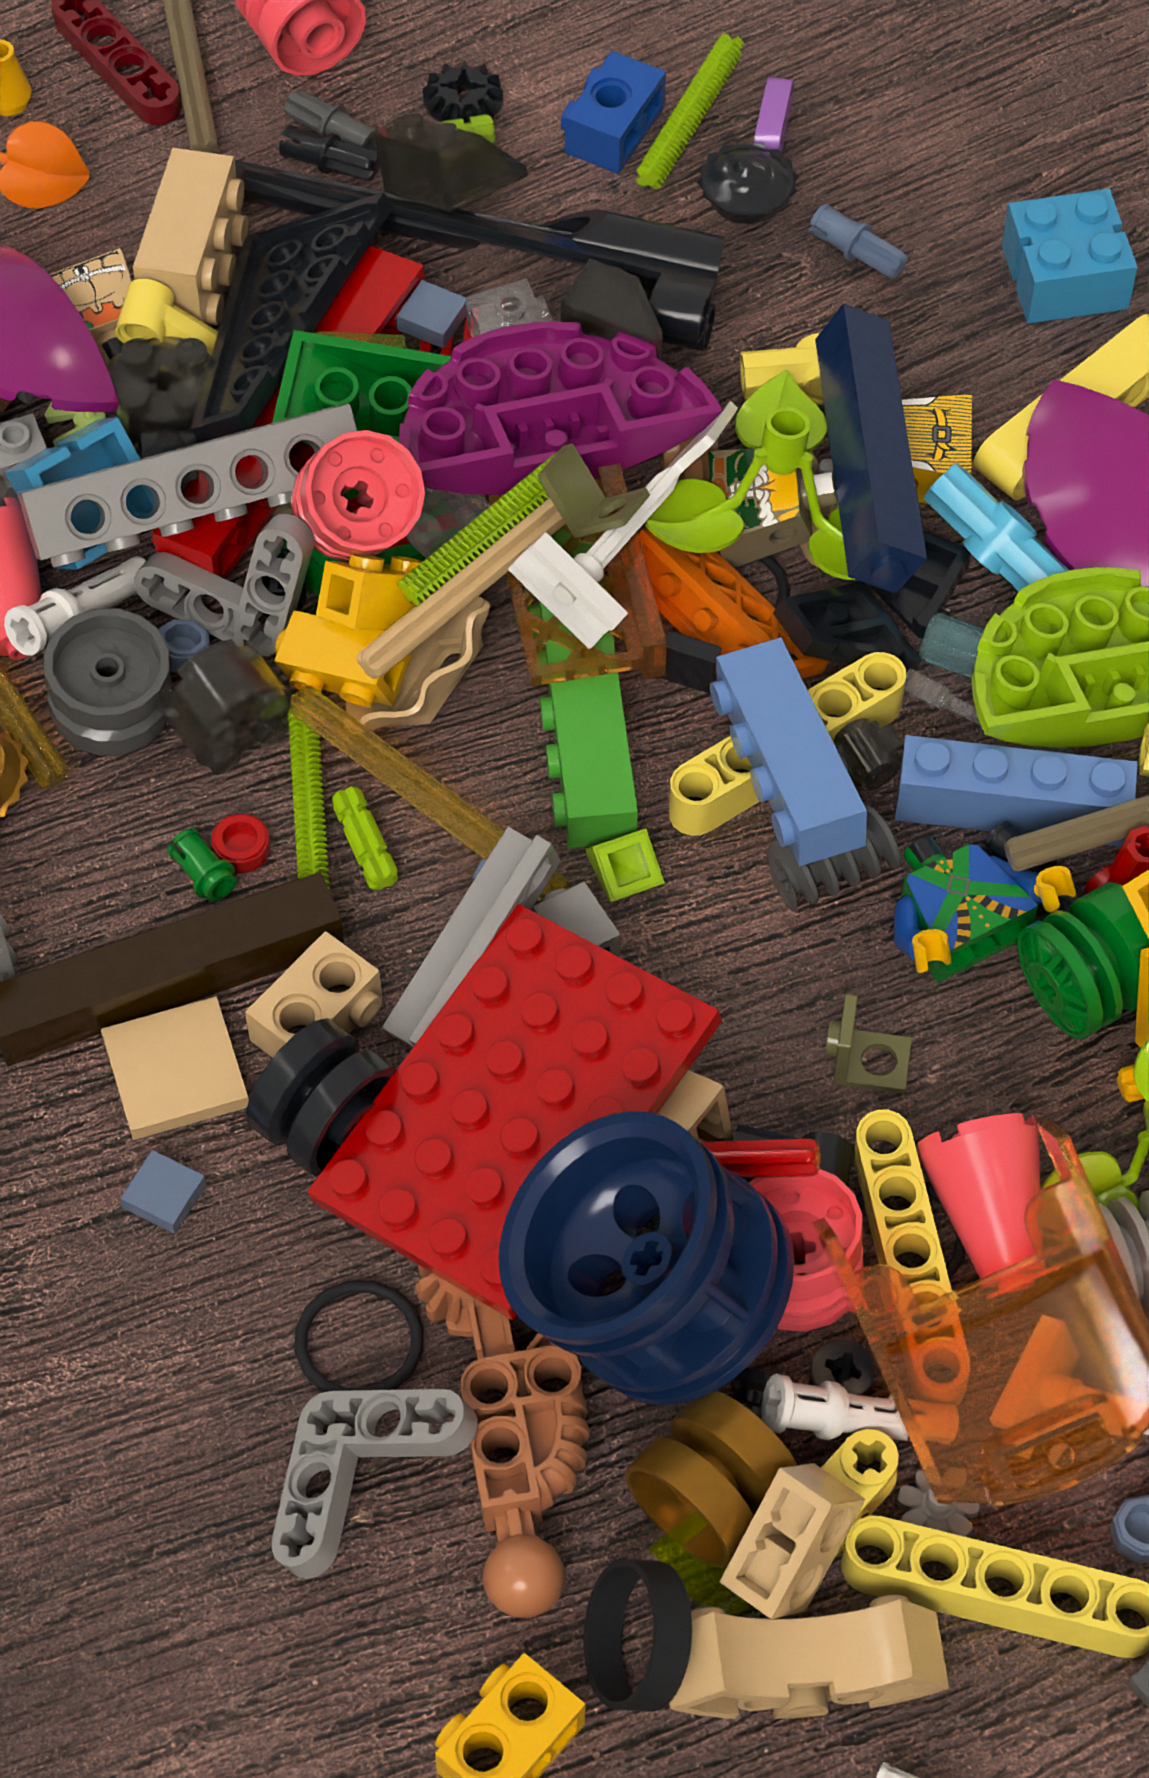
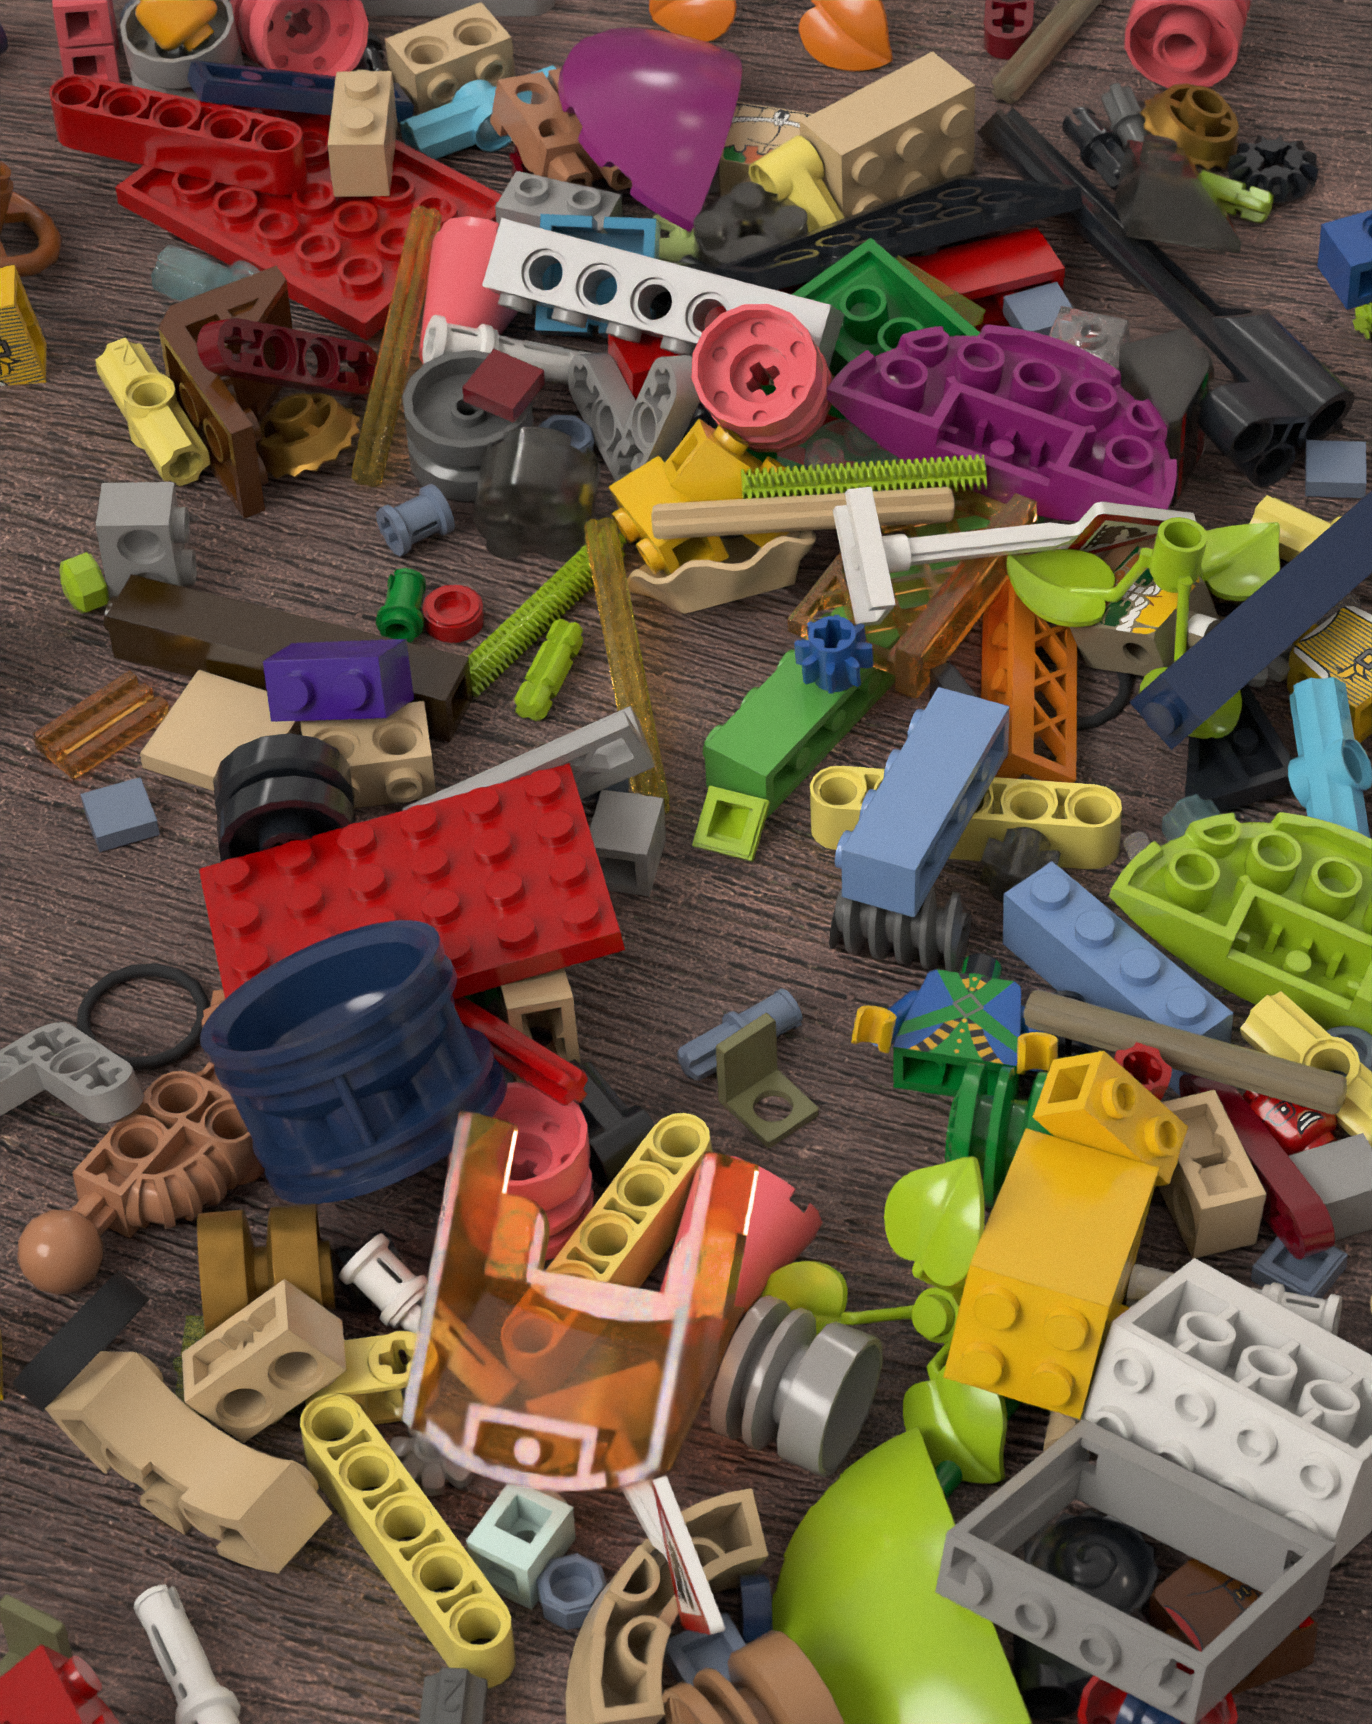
camera: 45 degrees right, 10 degrees down
(72, 1086) = (95, 720): none -> clear orange tile
(131, 631) = (503, 385): none -> dark red tile
(137, 787) = (415, 520): none -> sand blue bush
(257, 961) = (338, 680): none -> dark purple brick
(378, 91) = (1196, 121): none -> pearl gold piece
(581, 499) = (960, 490): olive bracket -> none
(602, 681) = (834, 654): none -> blue gear
(746, 303) = (1335, 469): none -> sand blue tile
(807, 1023) = (699, 1055): none -> sand blue axle
(843, 625) = (1113, 753): black wing -> none
(1091, 1545) = (520, 1539): none -> light aqua brick

